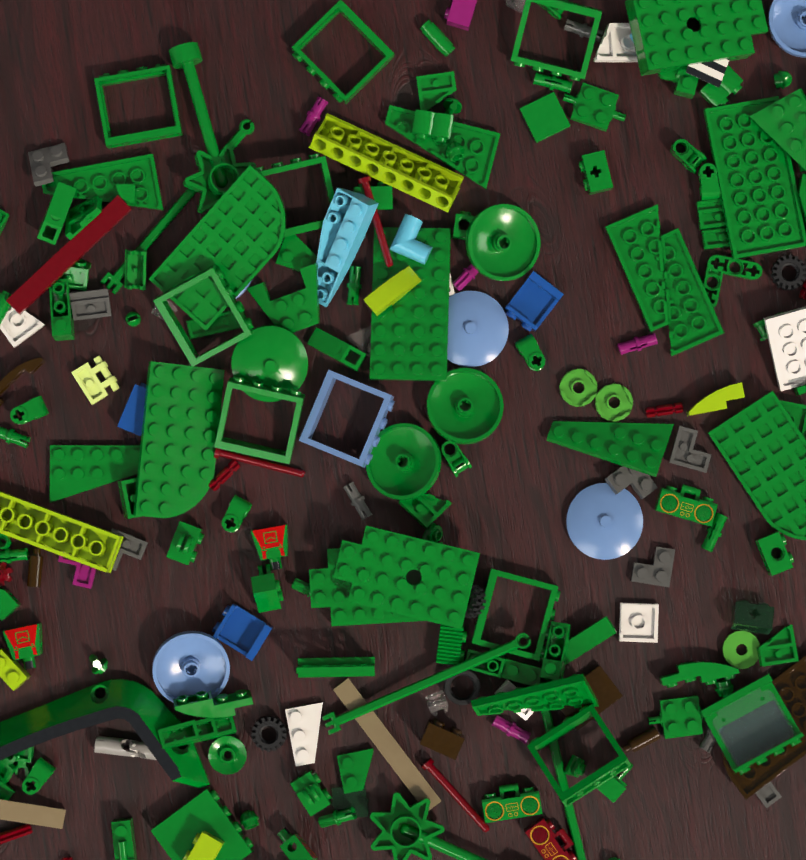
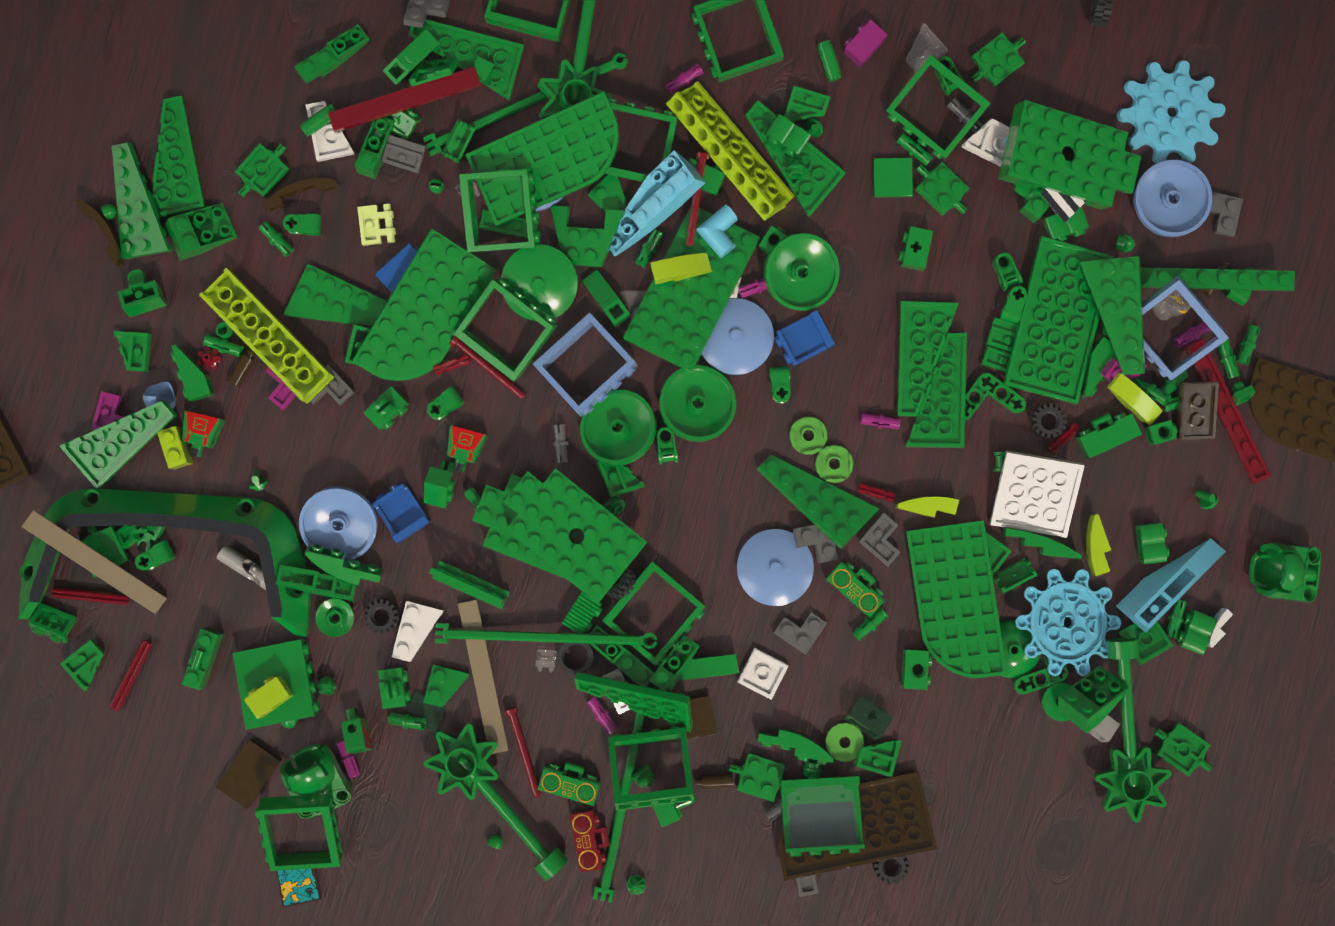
camera: 30 degrees right, 0 degrees up
(442, 739) = (535, 695): dark brown piece -> none

